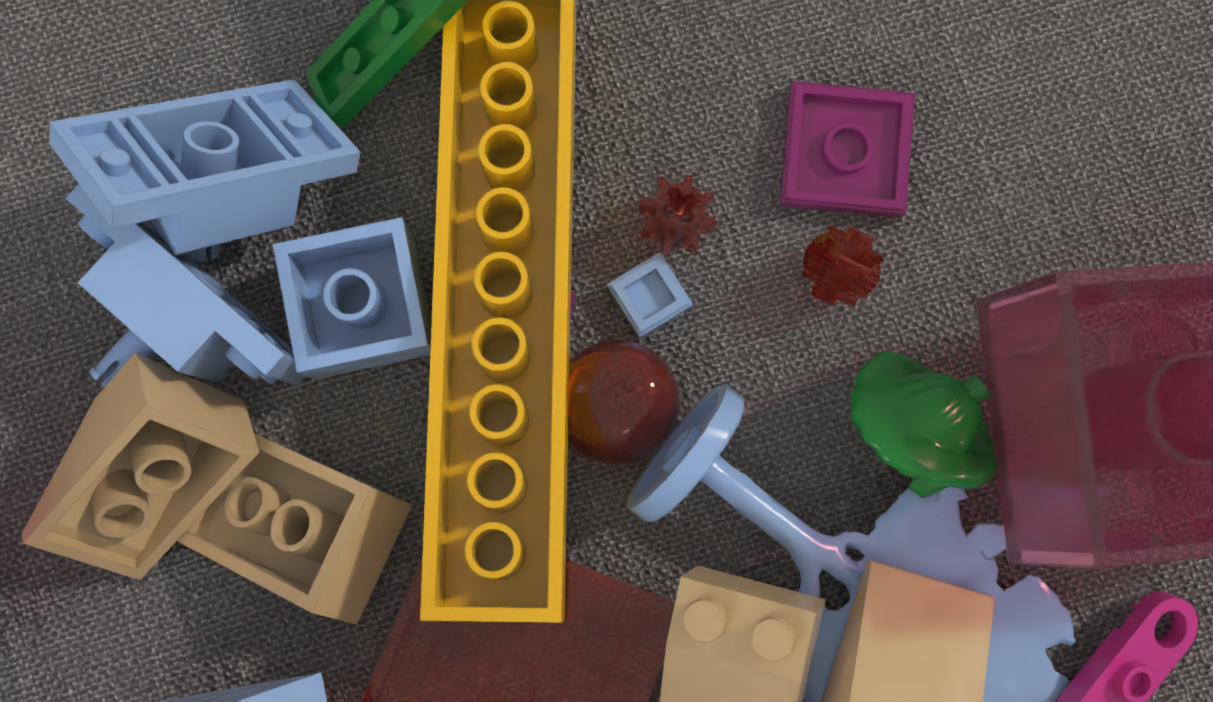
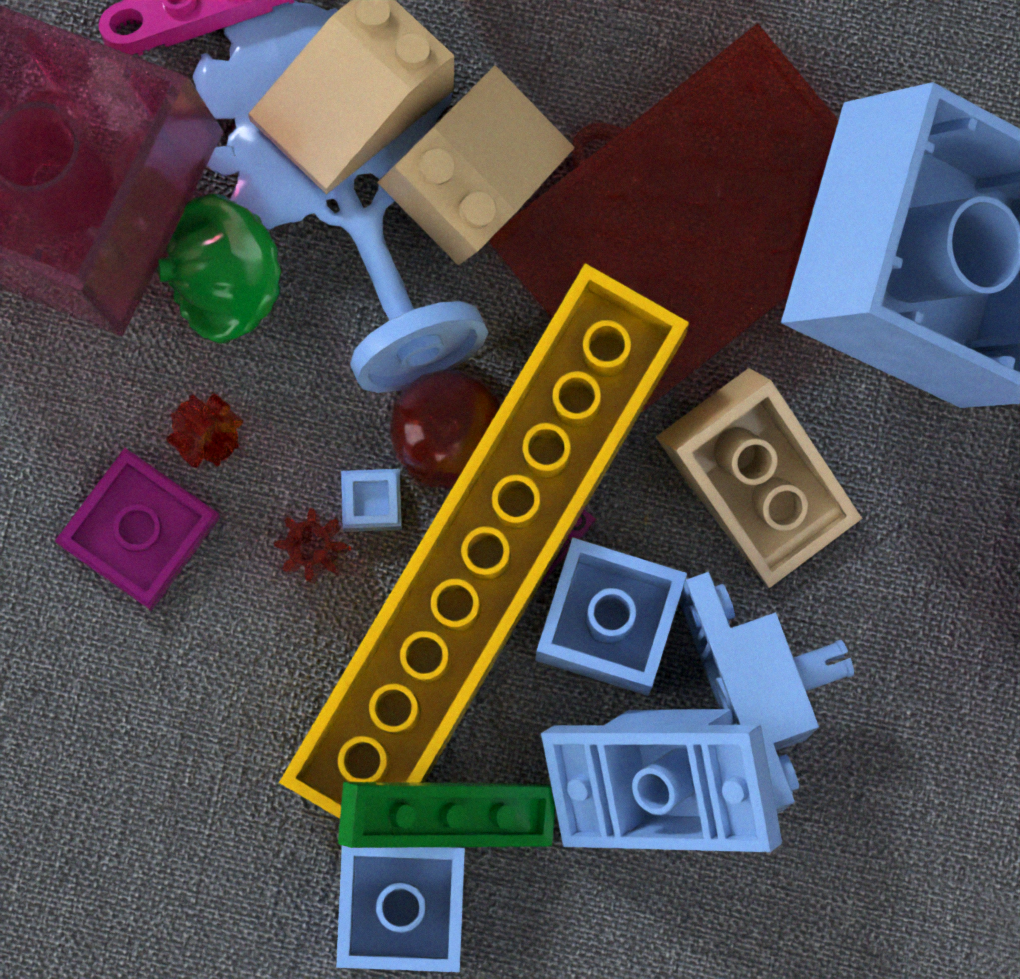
camera: 150 degrees left, 5 degrees down
(141, 469) = (847, 573): tan slope -> none

